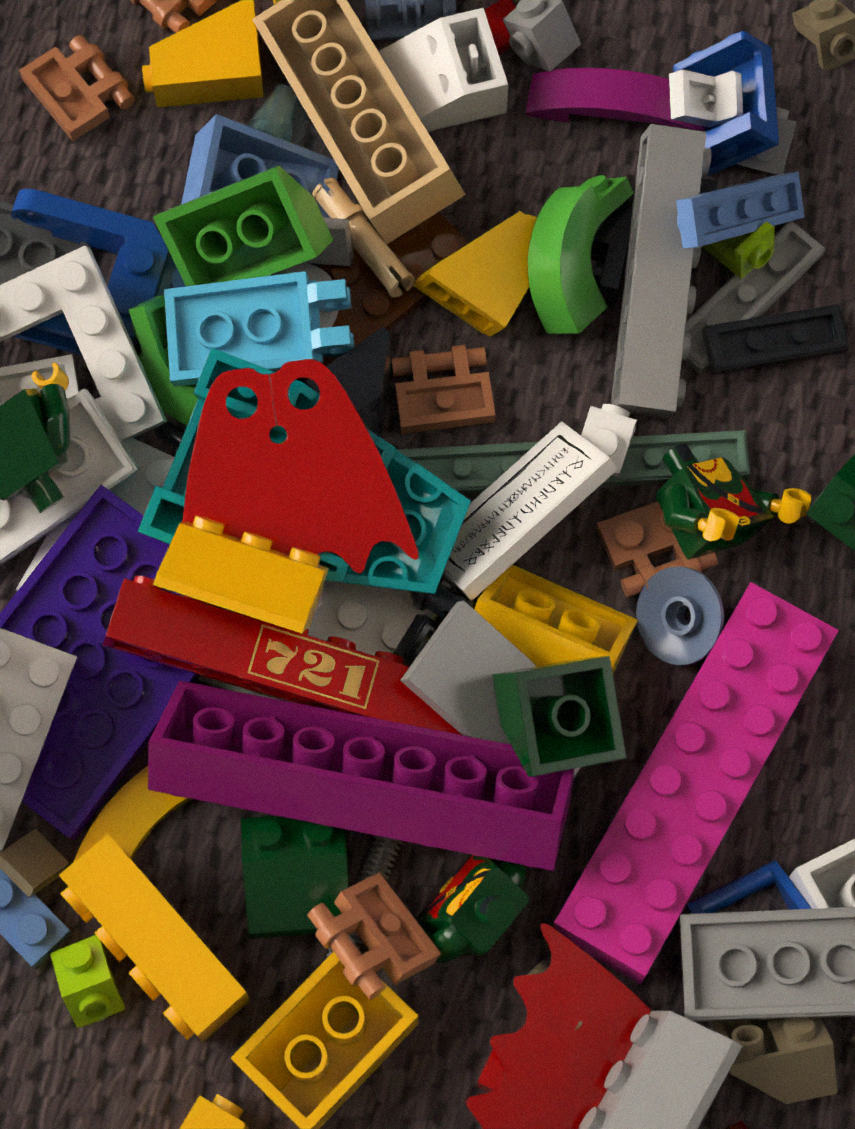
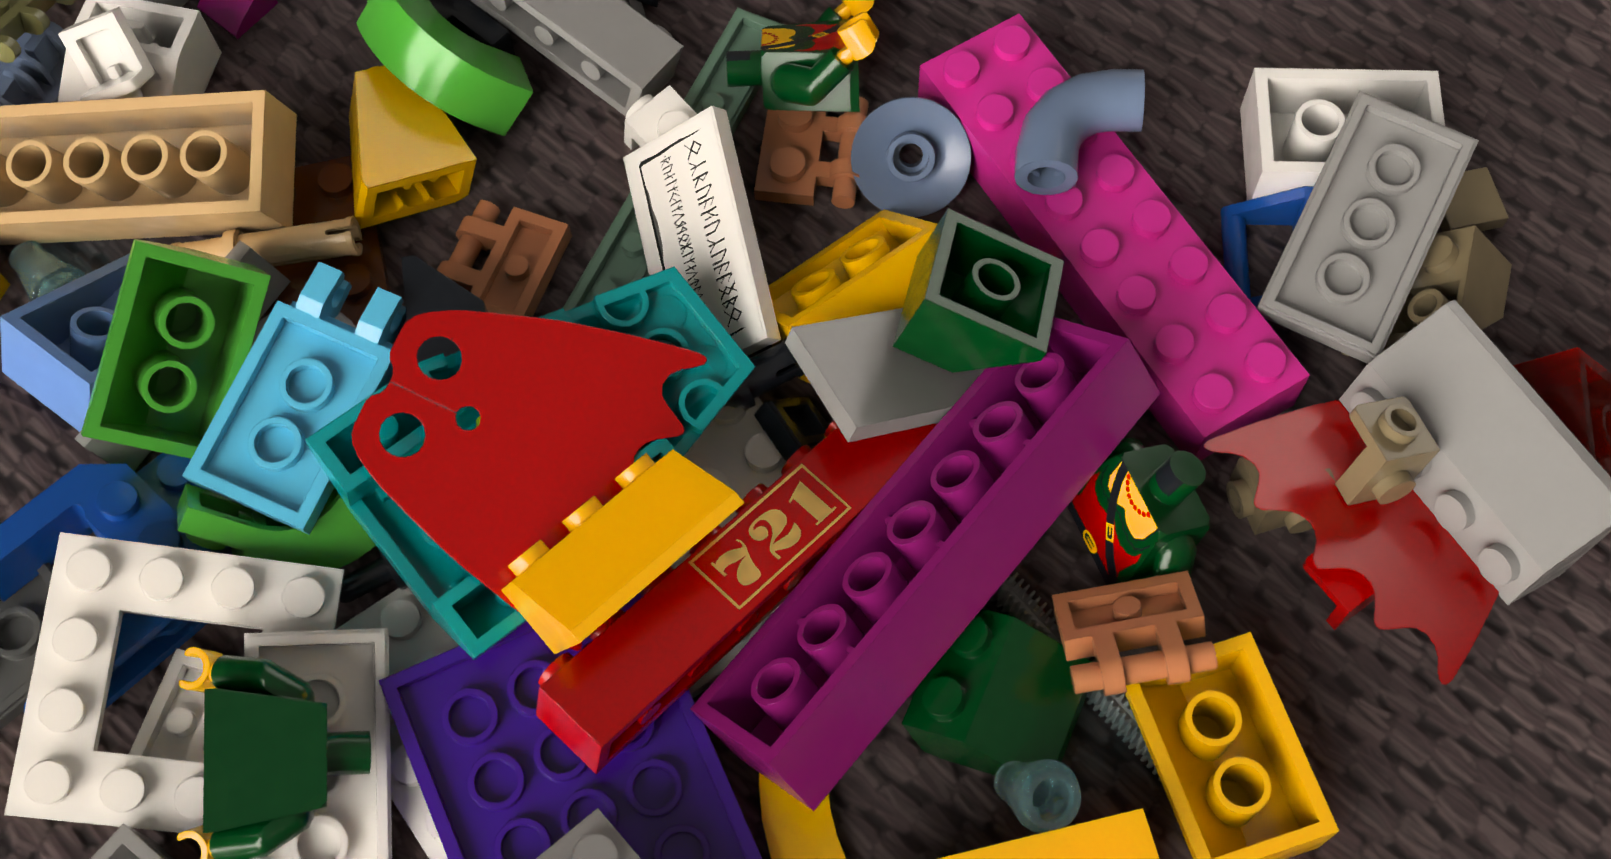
camera: 60 degrees left, 5 degrees down
(225, 923) = (1039, 793): none -> clear light blue cone
(431, 56) = (108, 56): none -> white bracket
(605, 1052) = (1394, 454): none -> dark tan bracket
(749, 705) = (1066, 117): none -> sand blue cylinder

